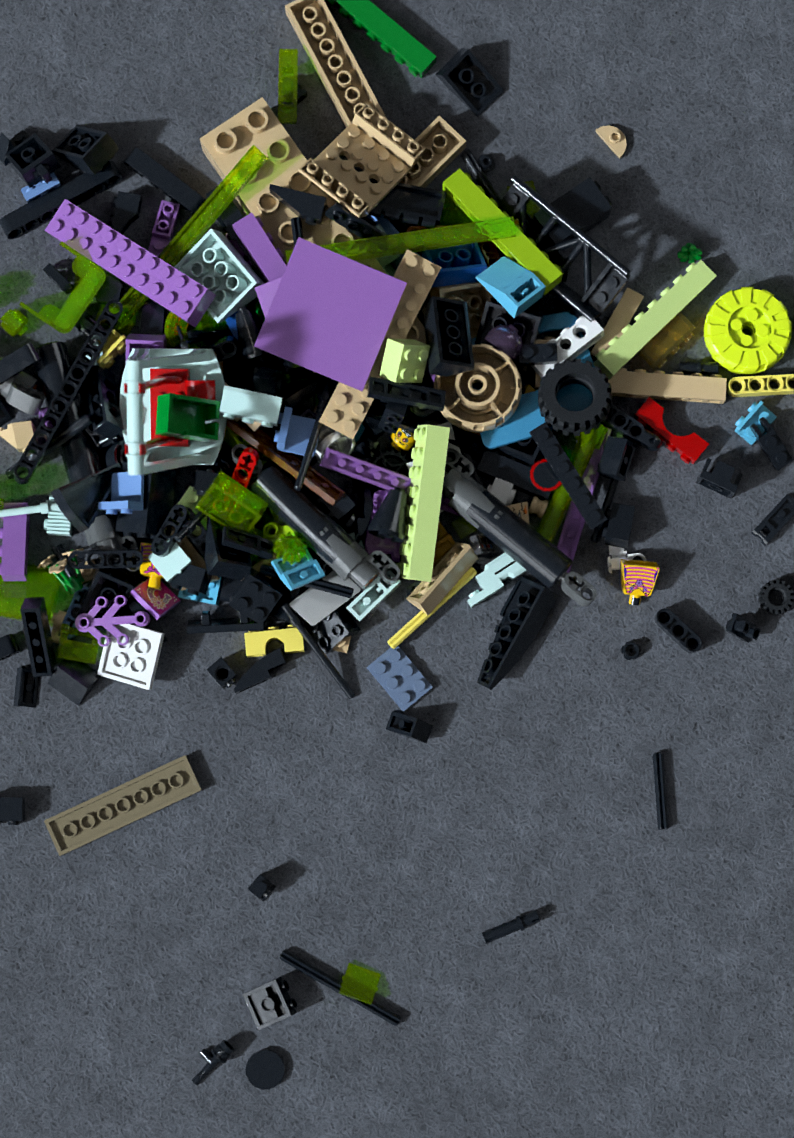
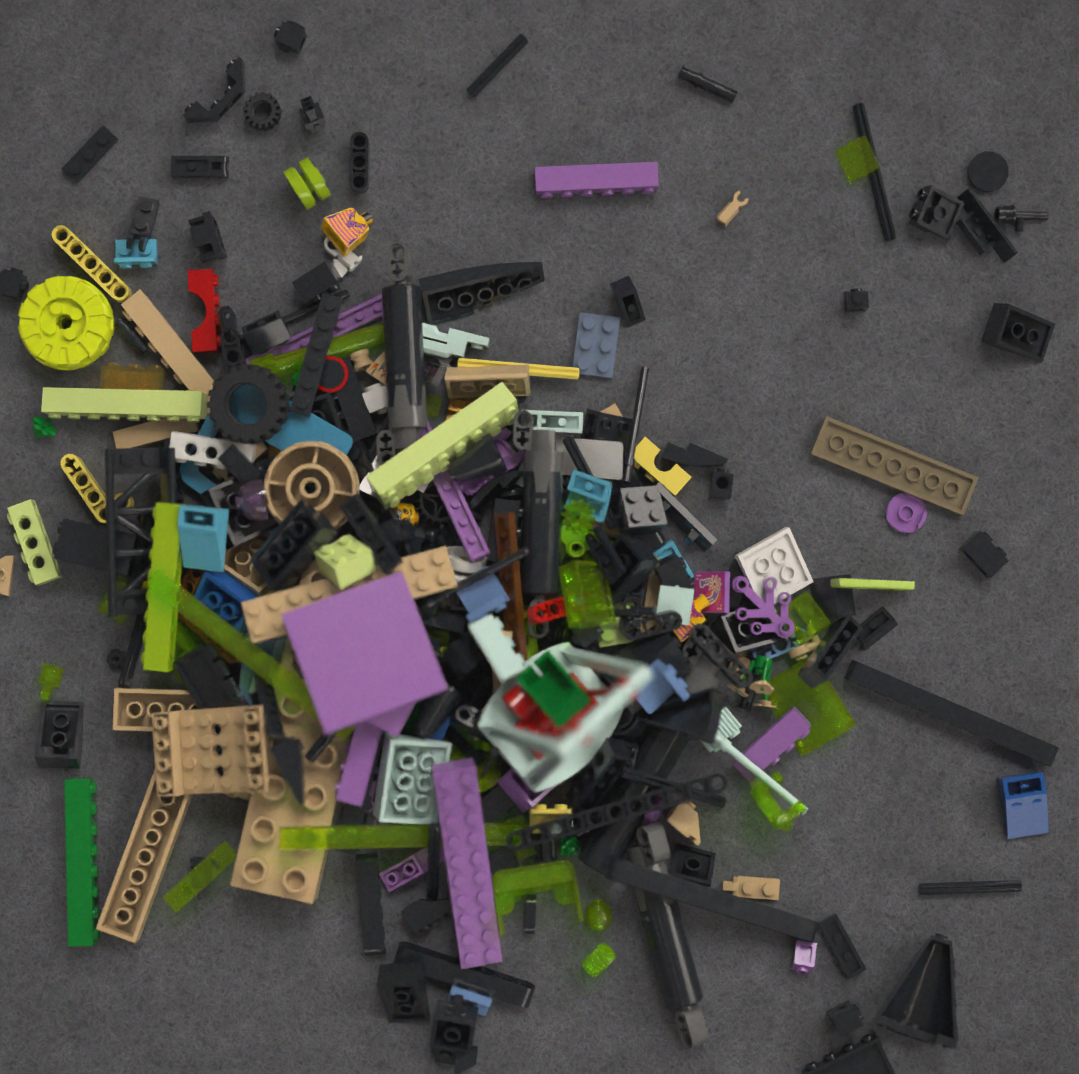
camera: 135 degrees left, 5 degrees up
(56, 710) = (872, 584): none -> lime tile
(76, 344) = (569, 846): none -> green plant
(83, 789) = (905, 513): none -> medium lavender tile
(132, 981) = (1018, 331): none -> black slope
(153, 244) = (433, 860): none -> black axle
(228, 1024) = (982, 229): none -> black bracket
(406, 859) = (731, 209): none -> tan bar
(514, 108) = (51, 677): none -> clear neon green plate
(515, 785) = (596, 178): none -> medium lavender brick
(618, 250) = (88, 489): none -> light yellow beam
(621, 187) = (16, 516): none -> yellowish green brick
(630, 645) = (408, 191): black plate -> none
(695, 579) = (307, 183): none -> lime wheel

